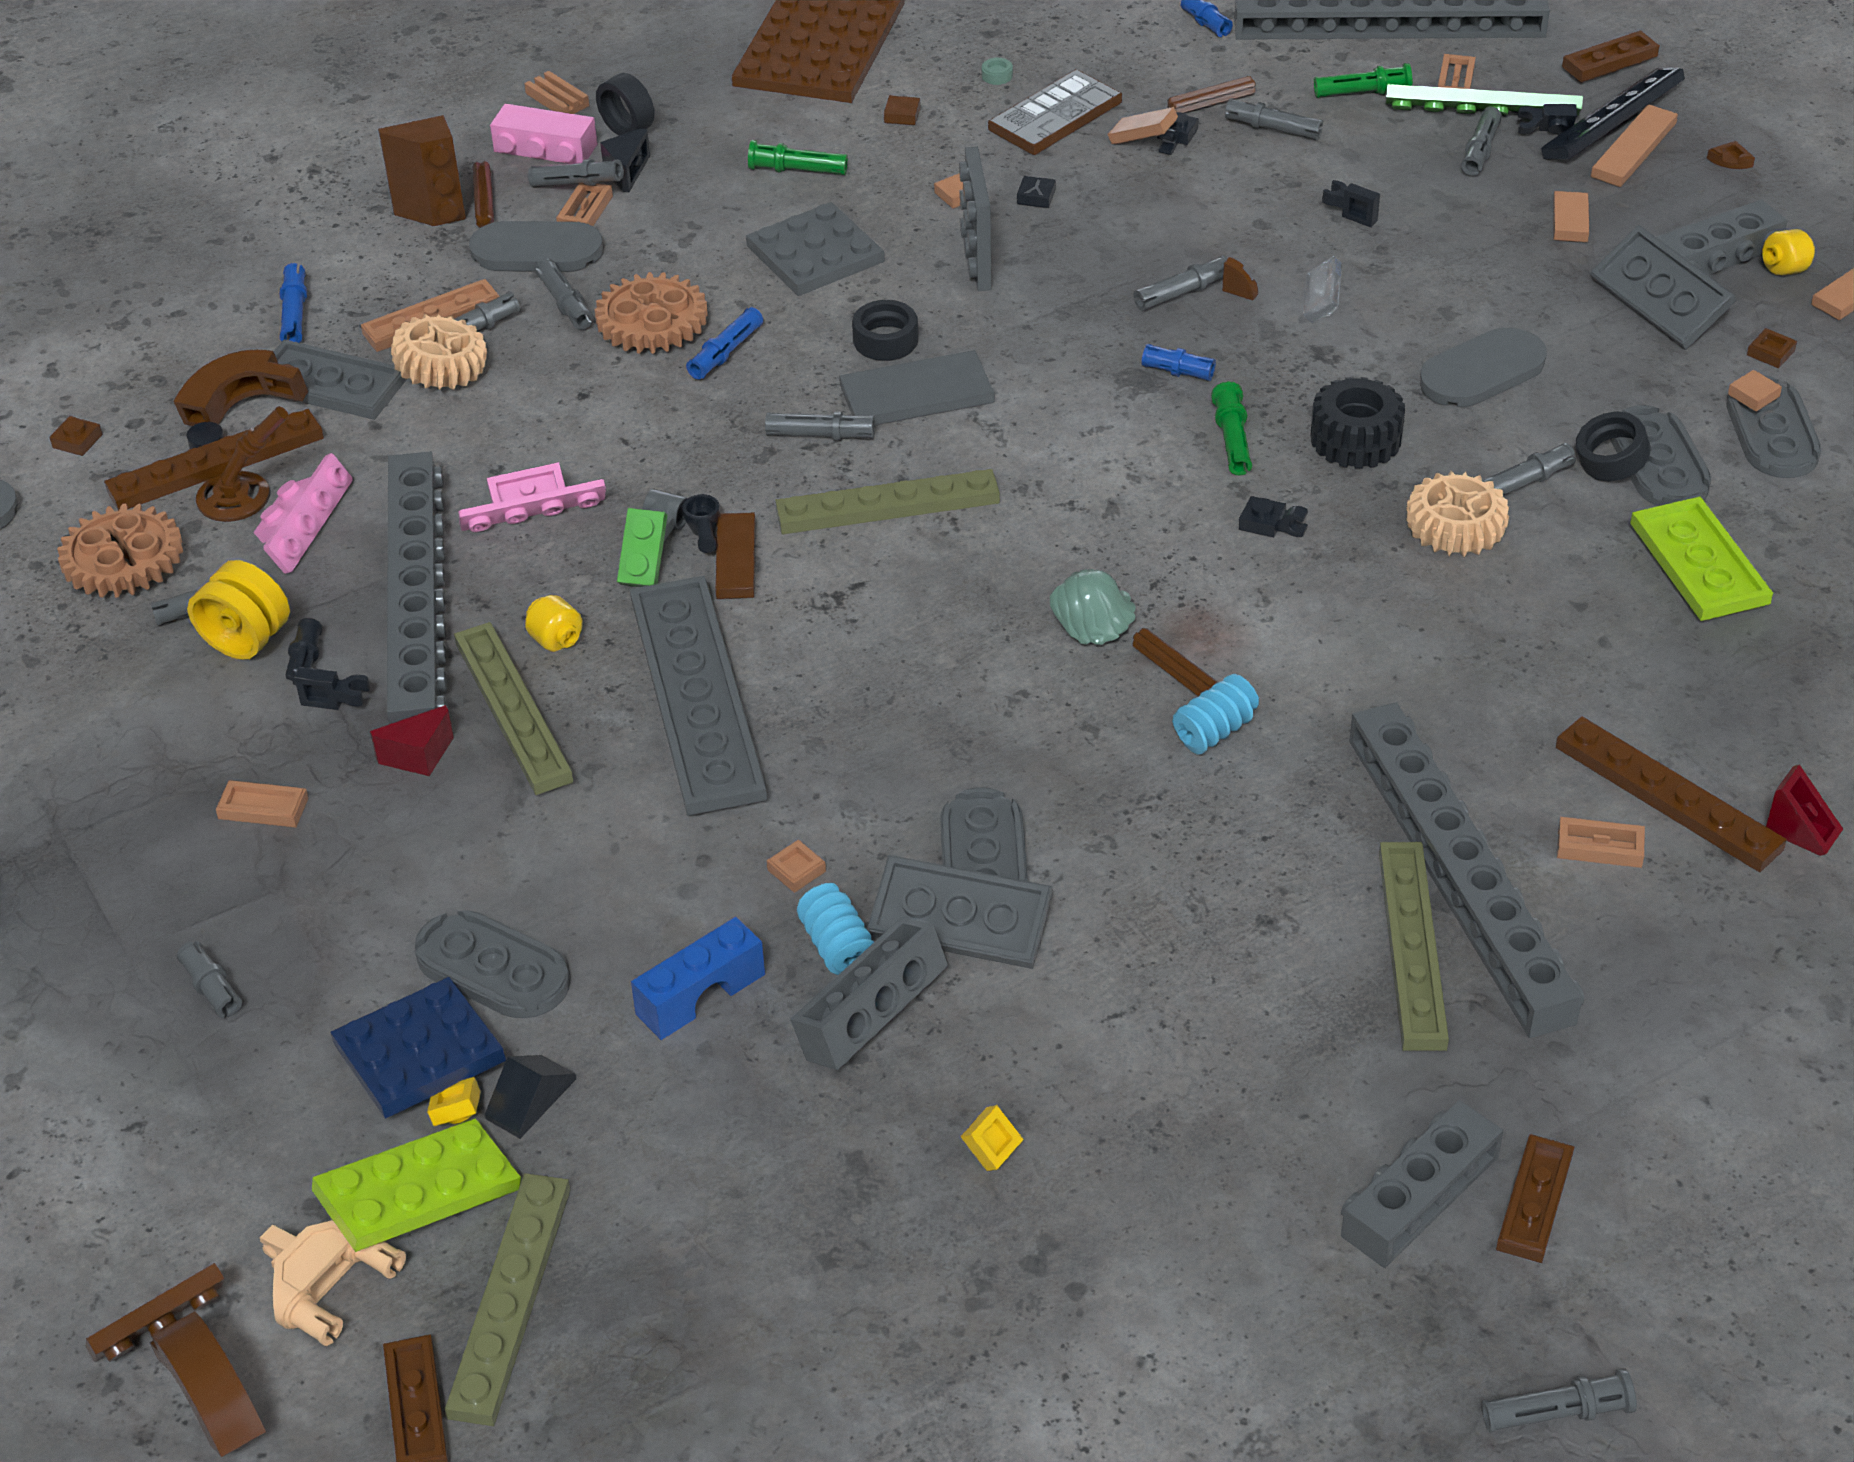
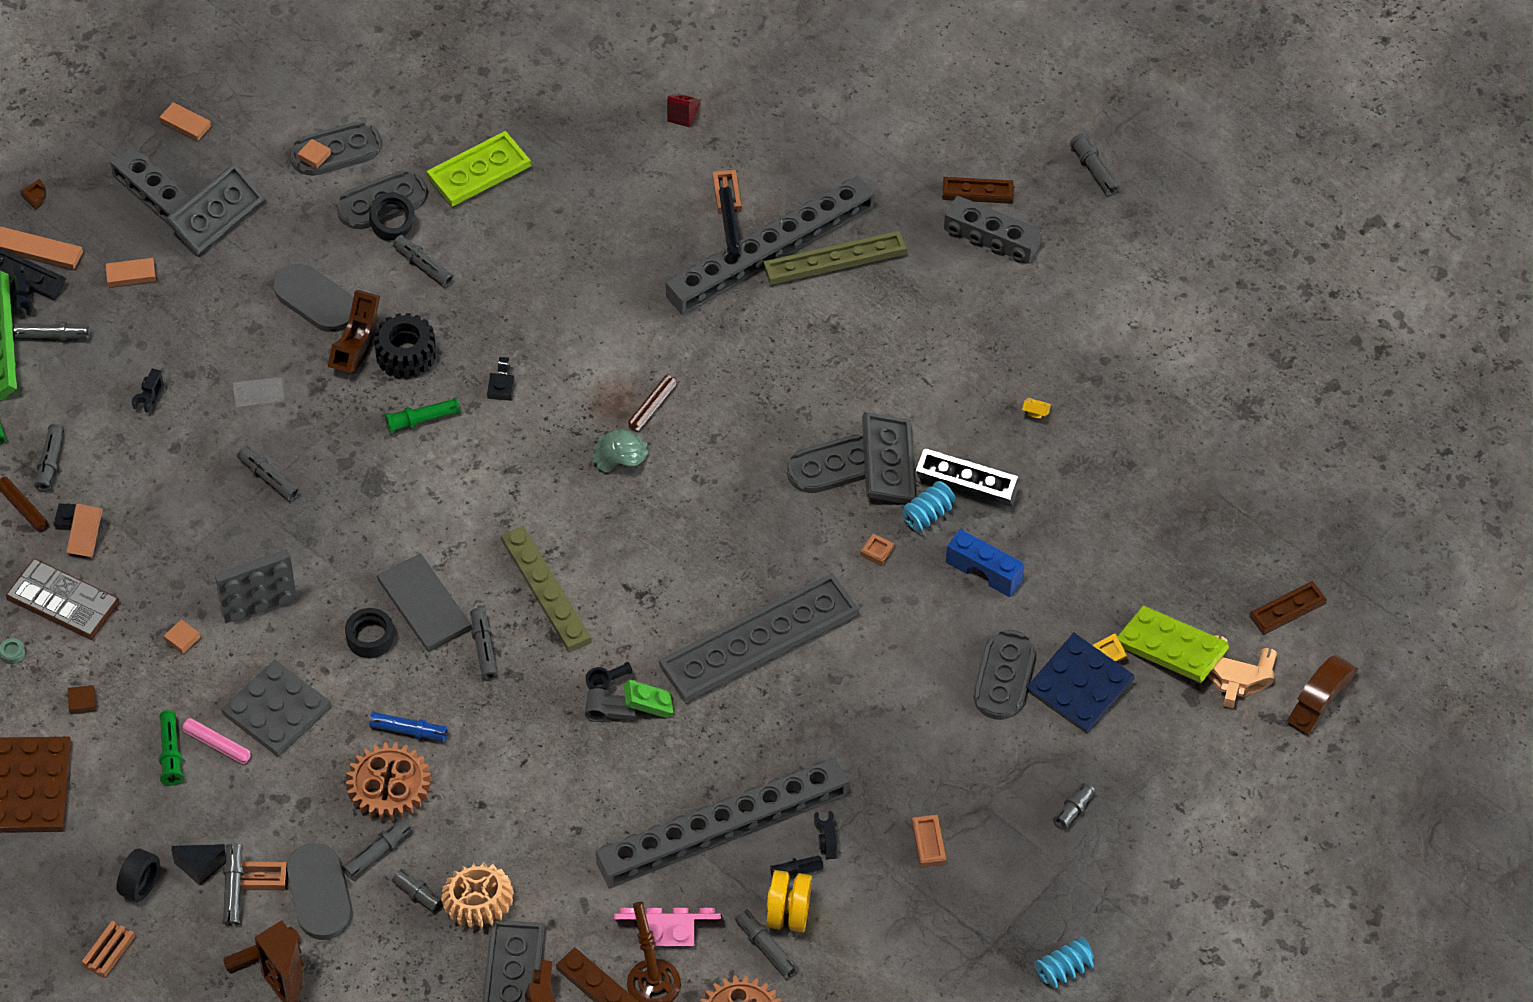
camera: 110 degrees left, 10 degrees up
(154, 1315) = (1294, 734): reddish brown plate -> none
(414, 742) = (856, 768): dark red slope -> none
(453, 303) = (420, 932): nougat tile -> none
(508, 1301) = (1211, 589): olive plate -> none
(513, 708) = (805, 731): olive plate -> none
(526, 1092) = (1086, 621): black slope -> none
(528, 494) = (612, 787): bright pink bracket -> none
(543, 134) = (179, 930): bright pink brick -> none
(552, 621) = (726, 732): yellow head -> none
(735, 556) = (636, 653): reddish brown tile -> none
(789, 196) = (216, 741): none -> bright pink axle
(1036, 191) = (172, 586): black tile -> none
(1178, 362) = (356, 459): blue pin -> none
(1215, 713) = (695, 372): medium azure piece -> none
(1237, 281) = (257, 442): reddish brown tile -> none
(1361, 359) = (356, 340): none -> reddish brown arch
(1457, 513) = (476, 279): light nougat gear -> none
(1512, 803) = (729, 220): none -> black axle
(1671, 794) = (677, 167): reddish brown plate -> none
(1772, 348) = (254, 155): reddish brown tile -> none
(1788, 252) = (157, 149): yellow head -> none

